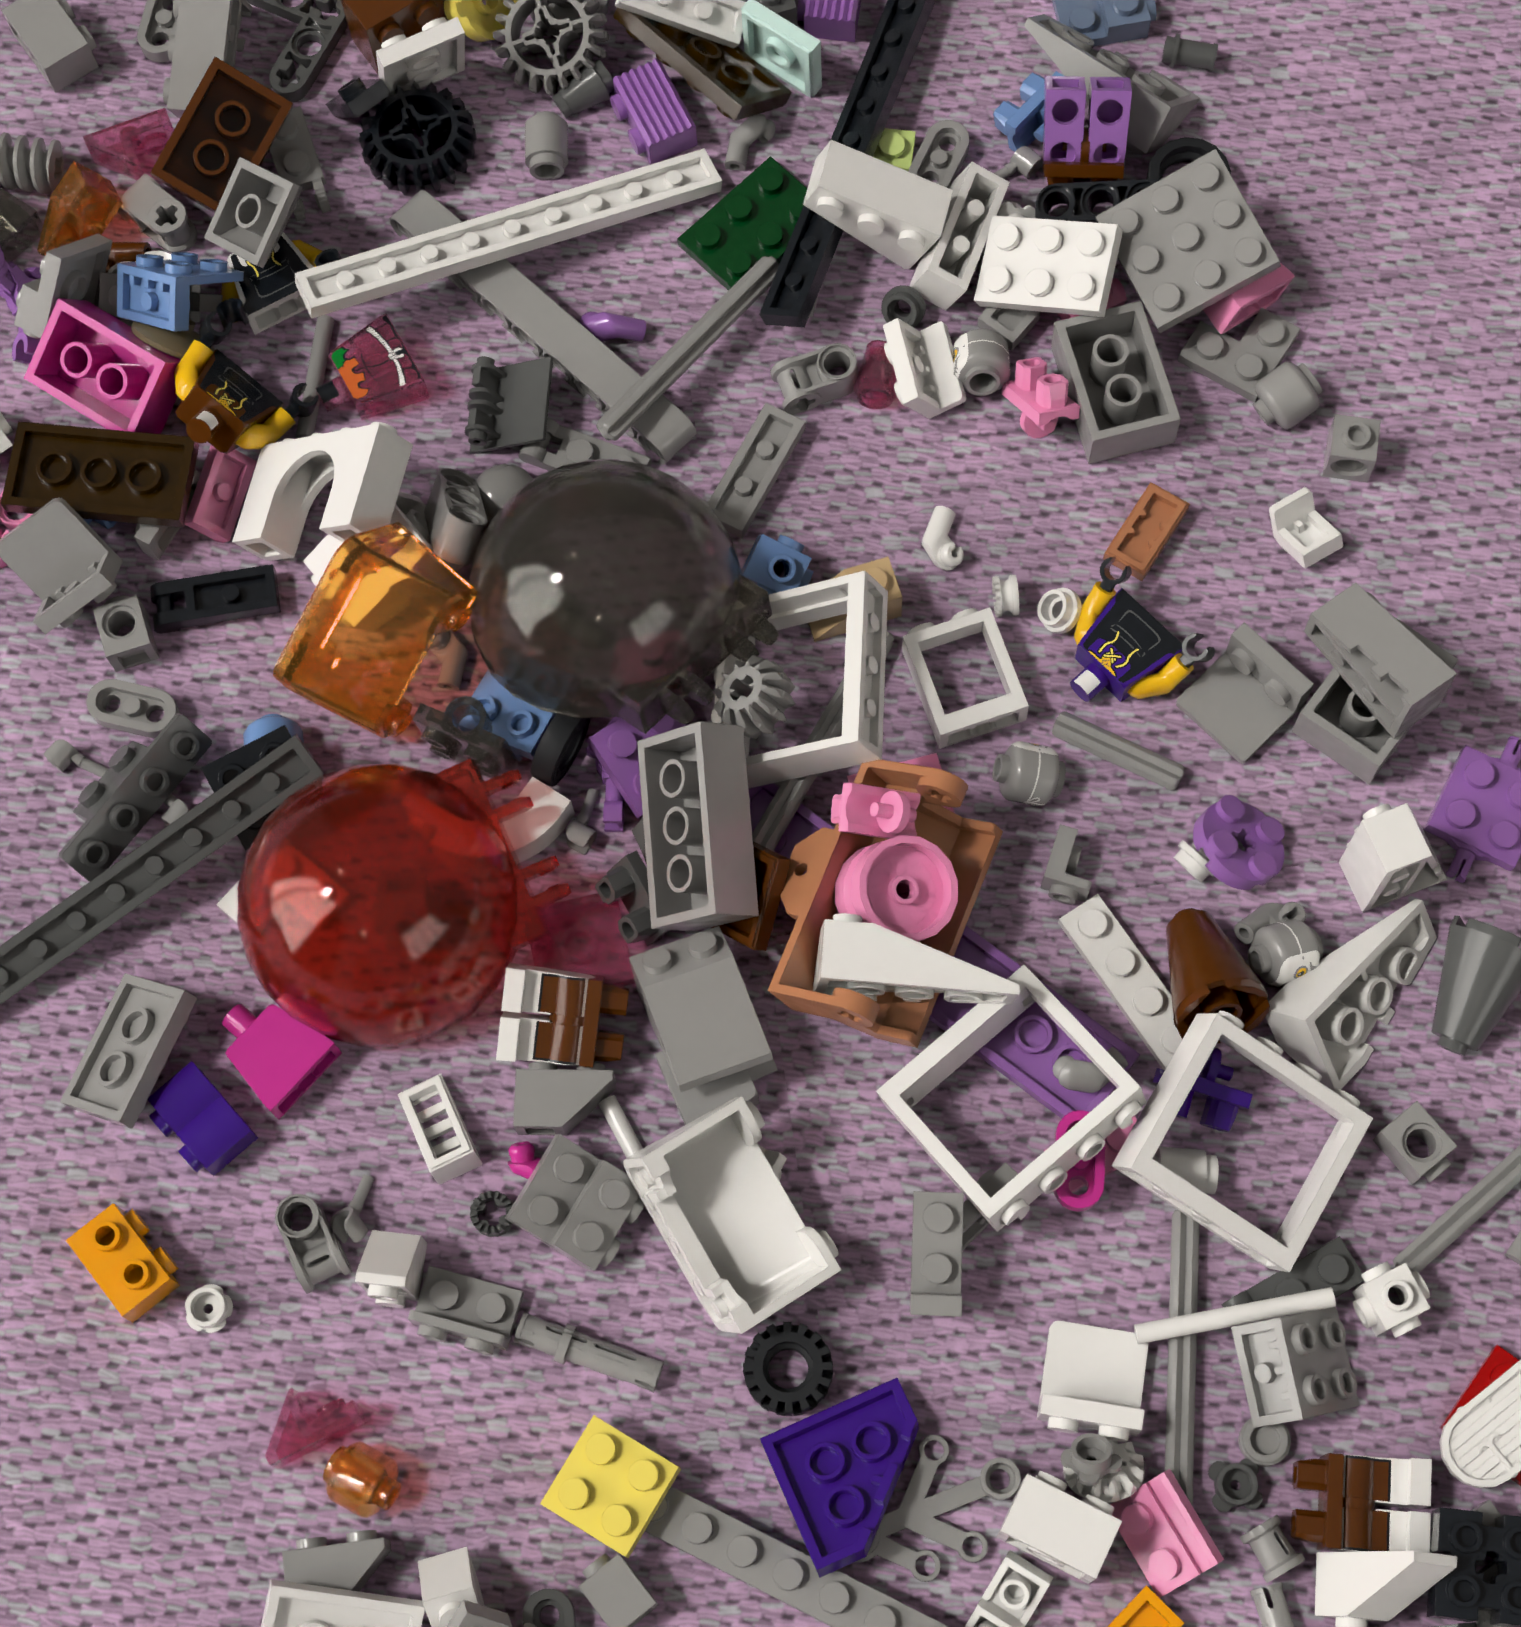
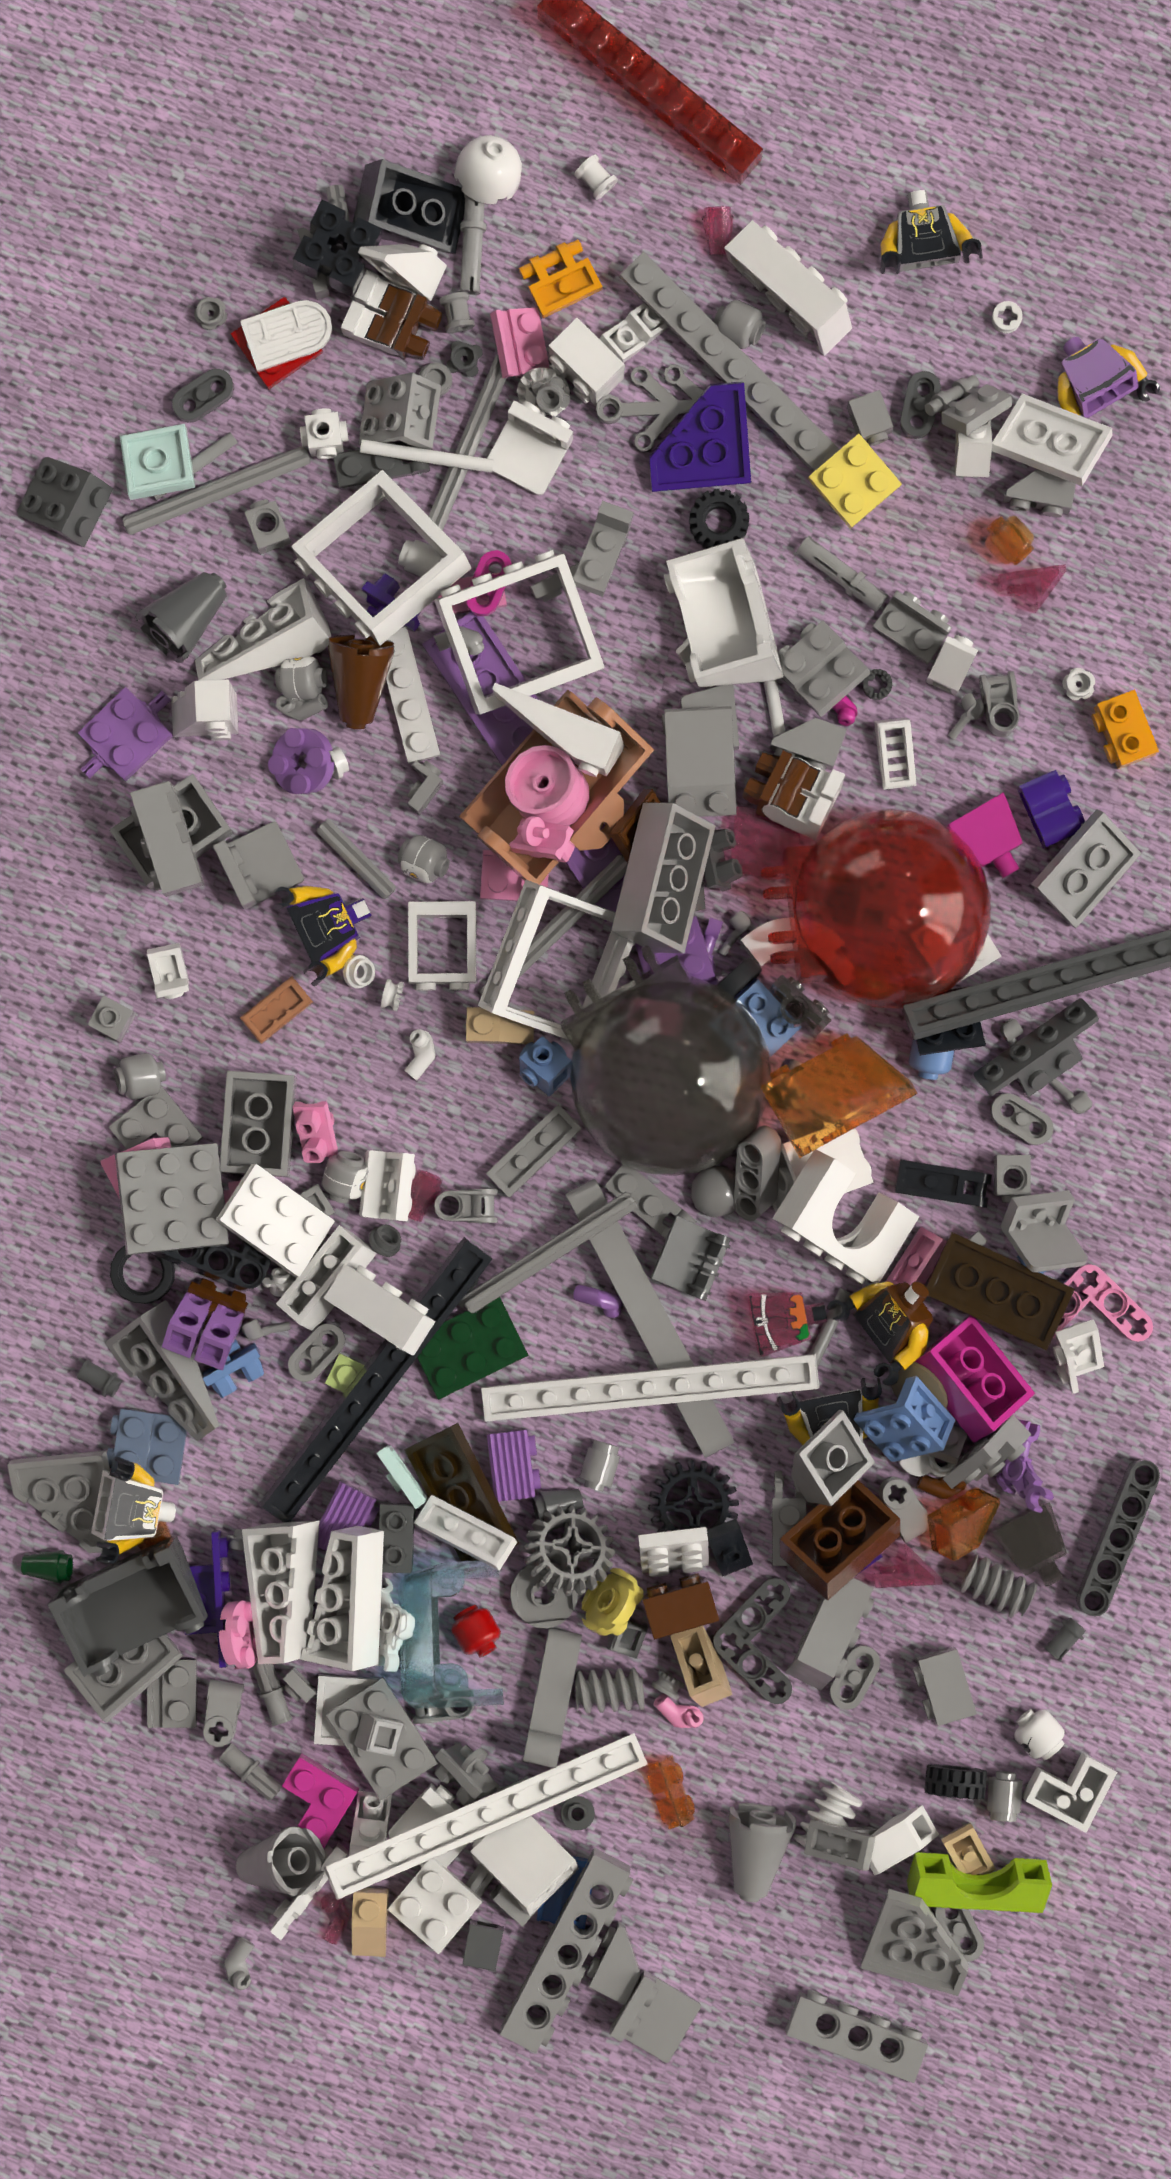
camera: 170 degrees left, 15 degrees up
(743, 136) = (459, 1415): light grey arm -> none
(754, 696) = (599, 944): light grey gear -> none

